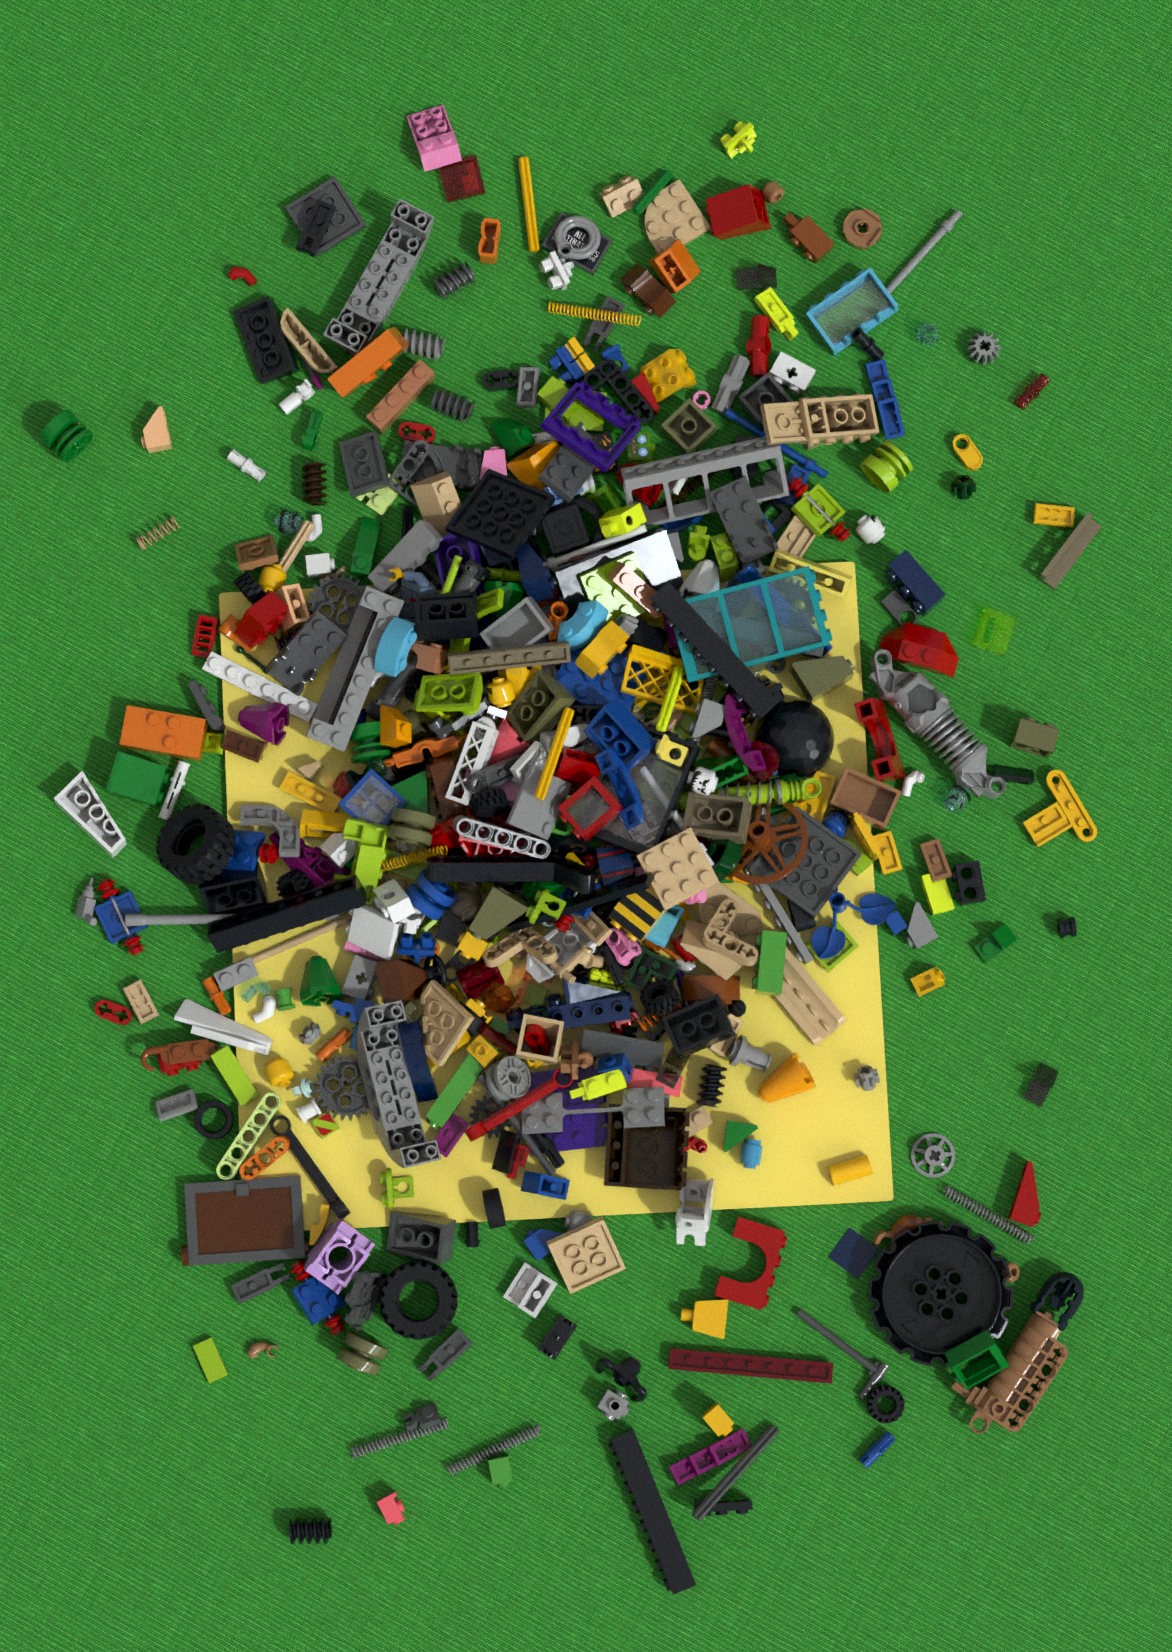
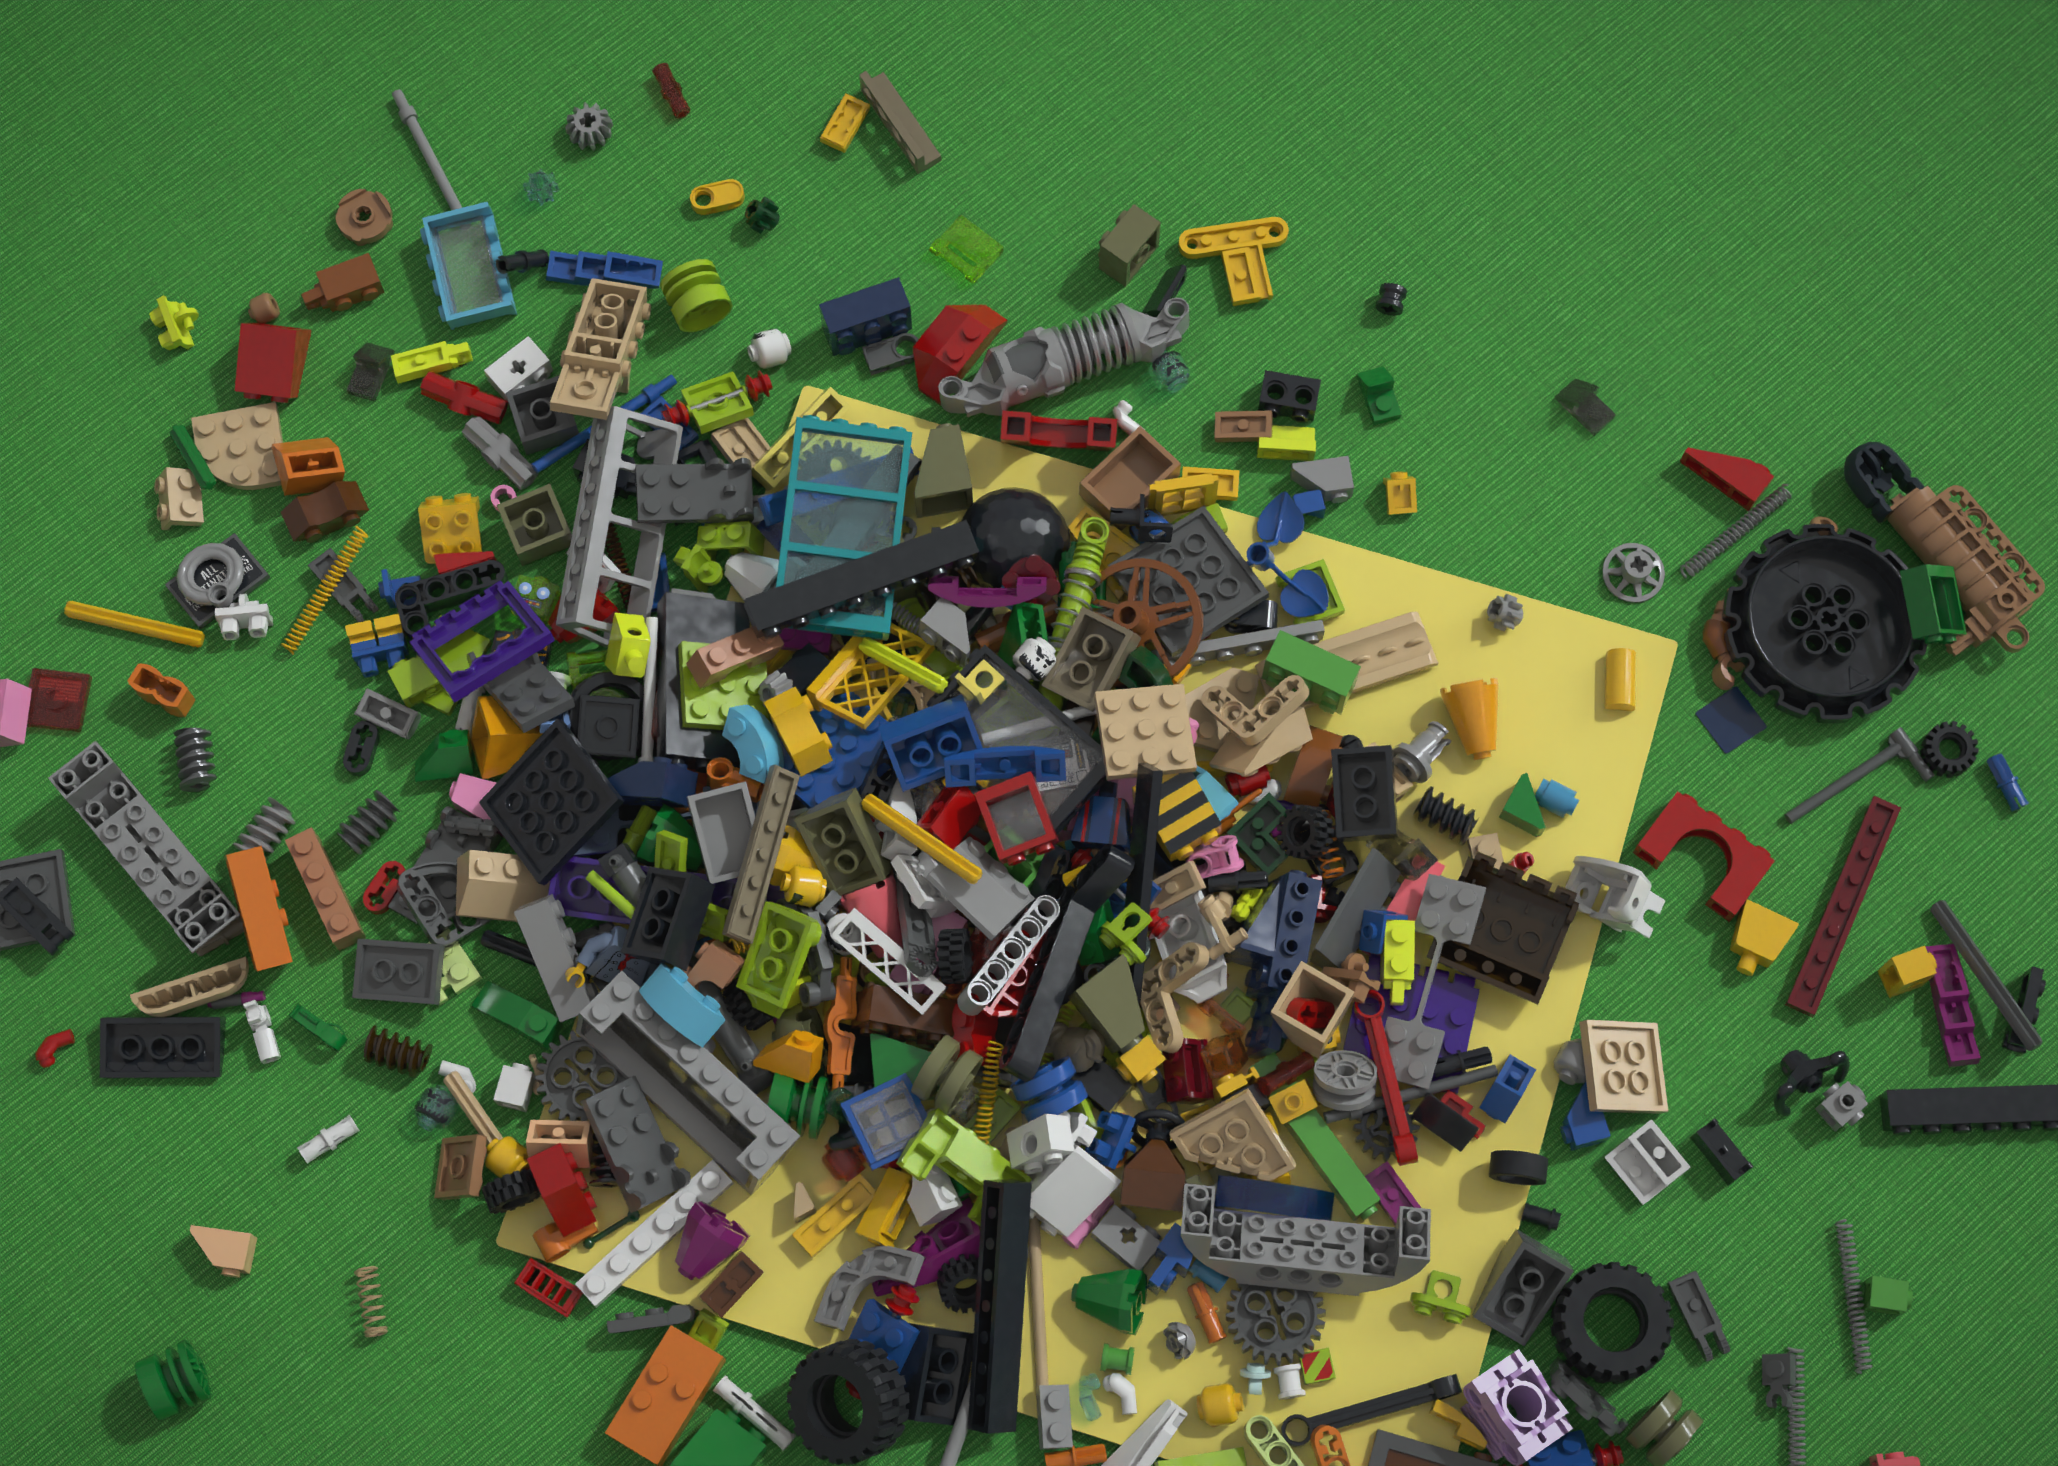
camera: 70 degrees left, 10 degrees down
(833, 812) = (1135, 518): none -> black bracket

